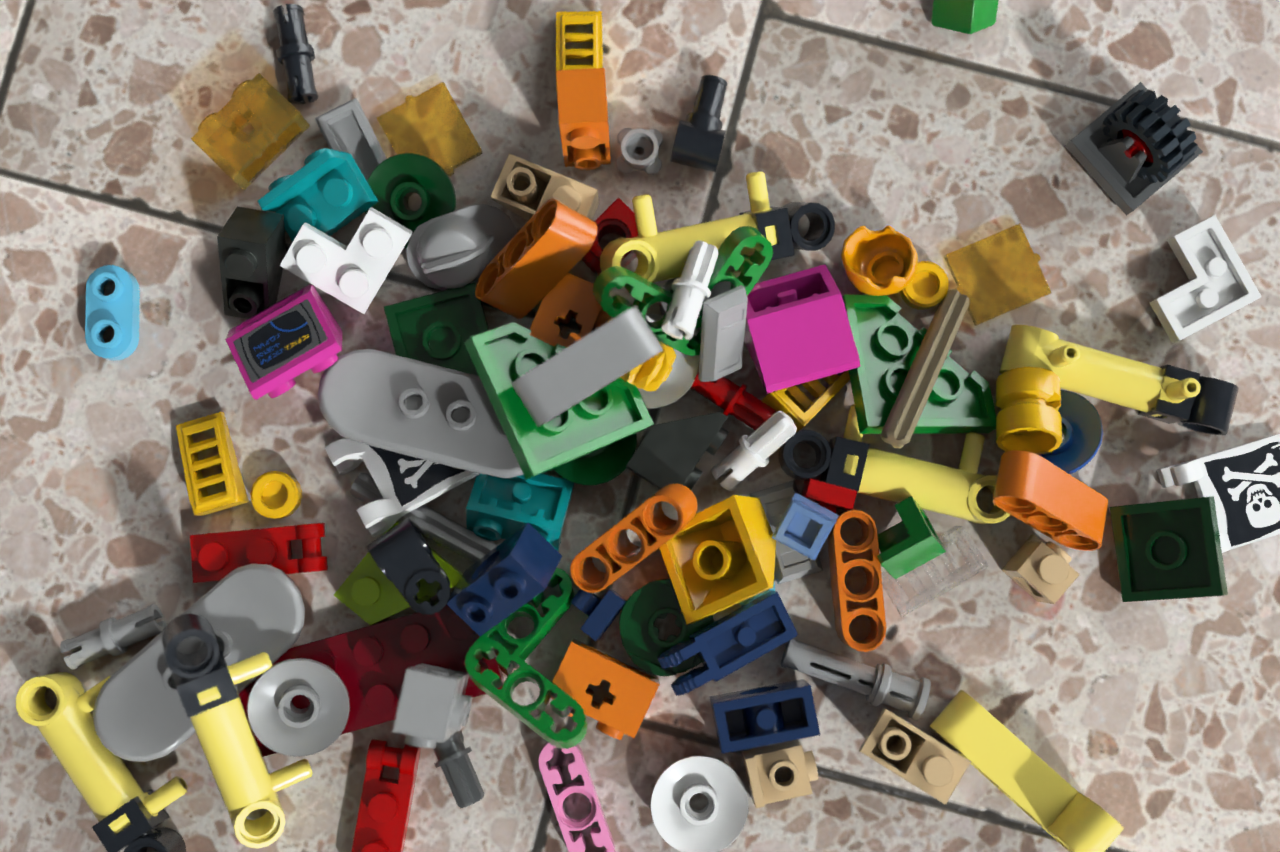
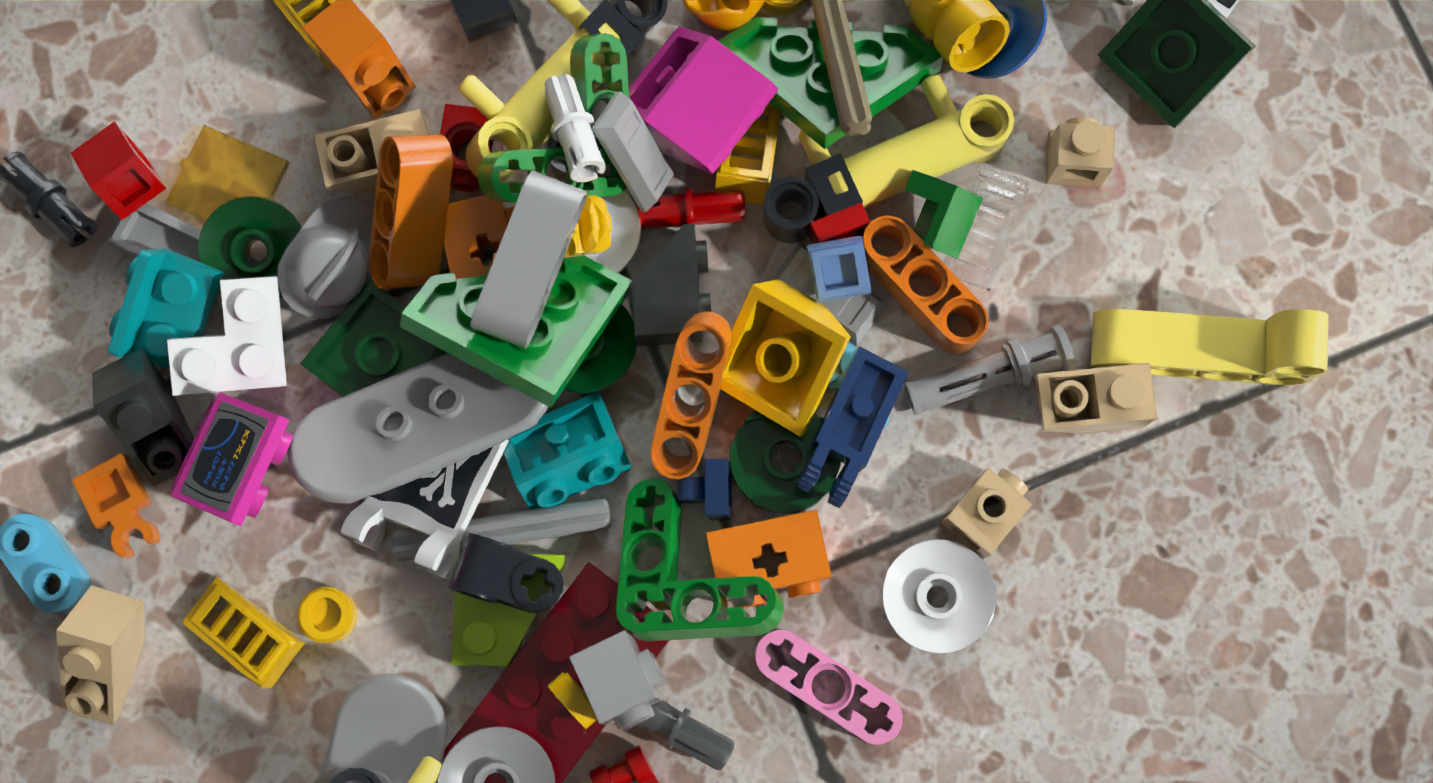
camera: 30 degrees left, 5 degrees down
(104, 406) = (99, 653): none -> tan slope
(191, 303) = (114, 498): none -> orange plate
(222, 552) = (312, 708): red plate -> none
(244, 154) = (58, 324): clear yellow brick -> none
(357, 73) = (118, 170): none -> red brick
(392, 686) = (574, 699): none -> yellow tile
(504, 579) = (600, 521): dark blue brick -> none
(649, 141) = (428, 40): light grey plate -> none
(755, 449) = (742, 237): white axle -> none
(764, 715) = (934, 466): dark blue brick -> none
(1050, 500) = (1039, 82): orange beam -> none

